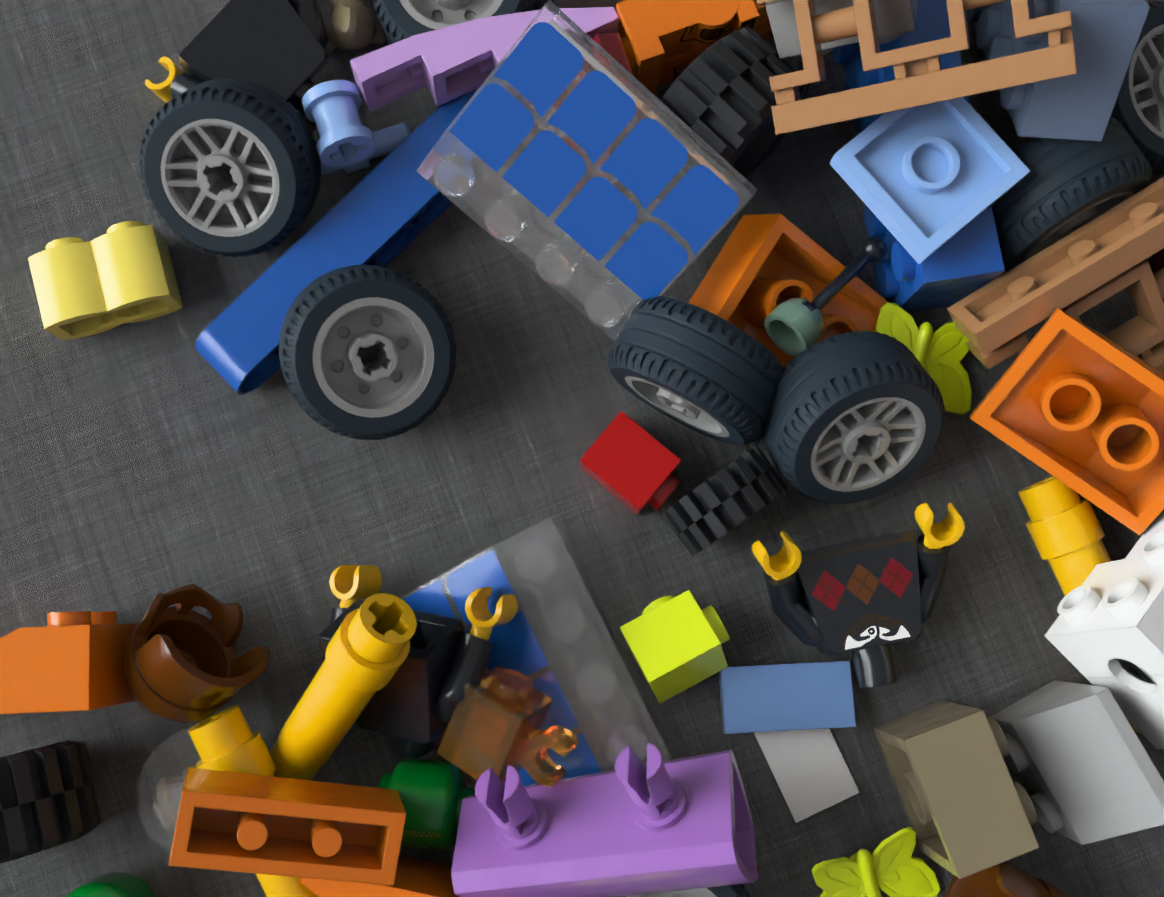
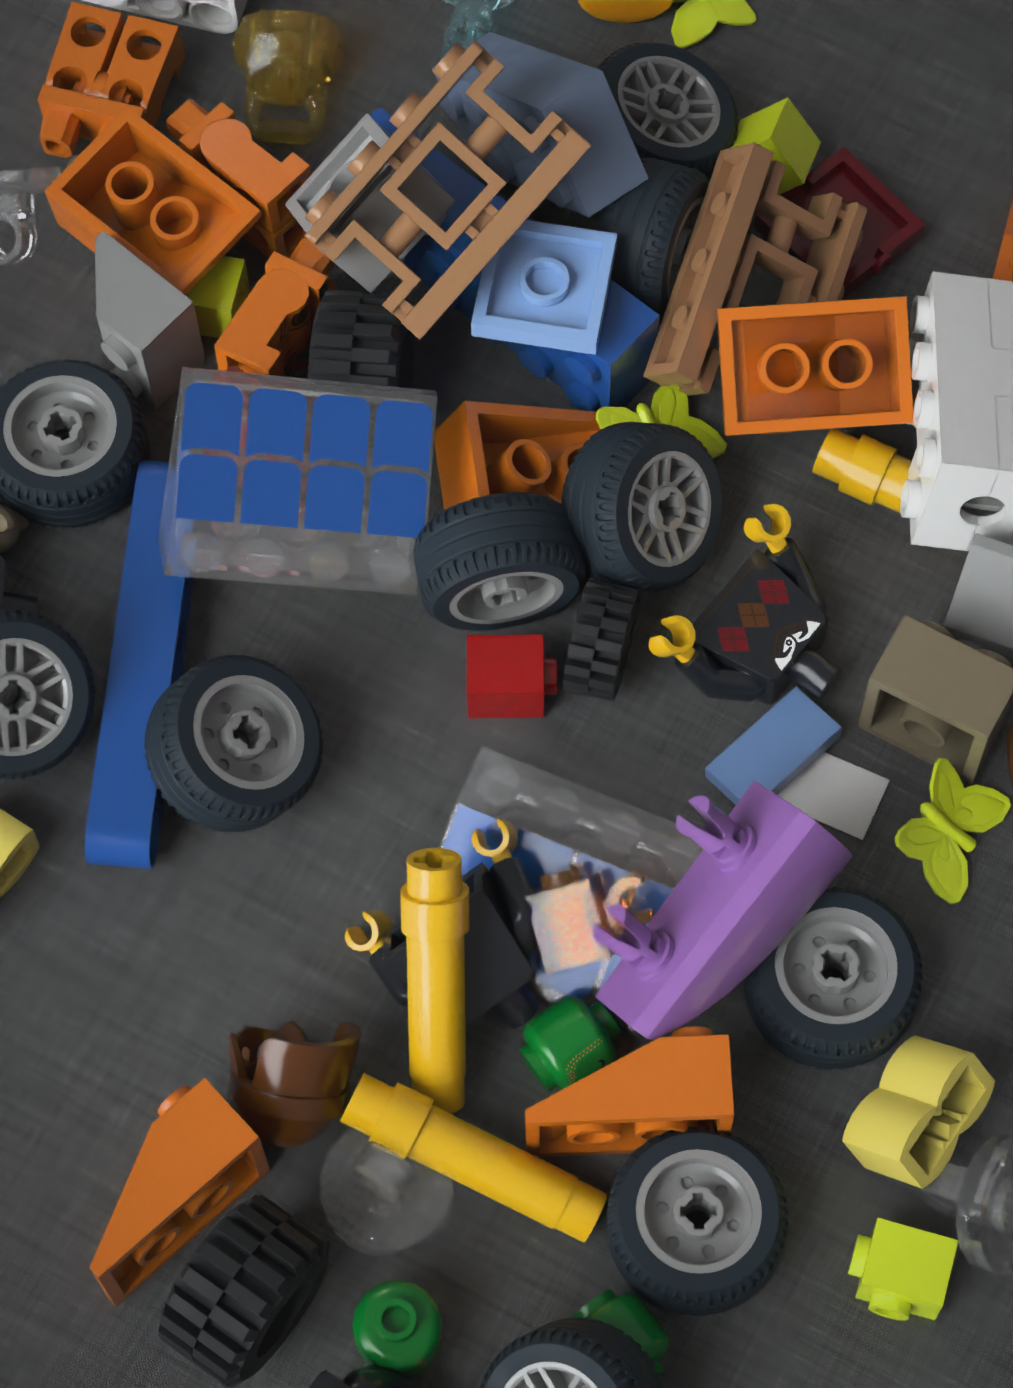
camera: 40 degrees left, 15 degrees down
(288, 827) = (480, 1093): orange brick -> none
(343, 138) = (70, 598): light blue piece -> none
(456, 56) = (120, 475): lavender slope -> none
(676, 644) = (657, 769): neon yellow brick -> none
(799, 322) = (546, 456): sand green hinge -> none

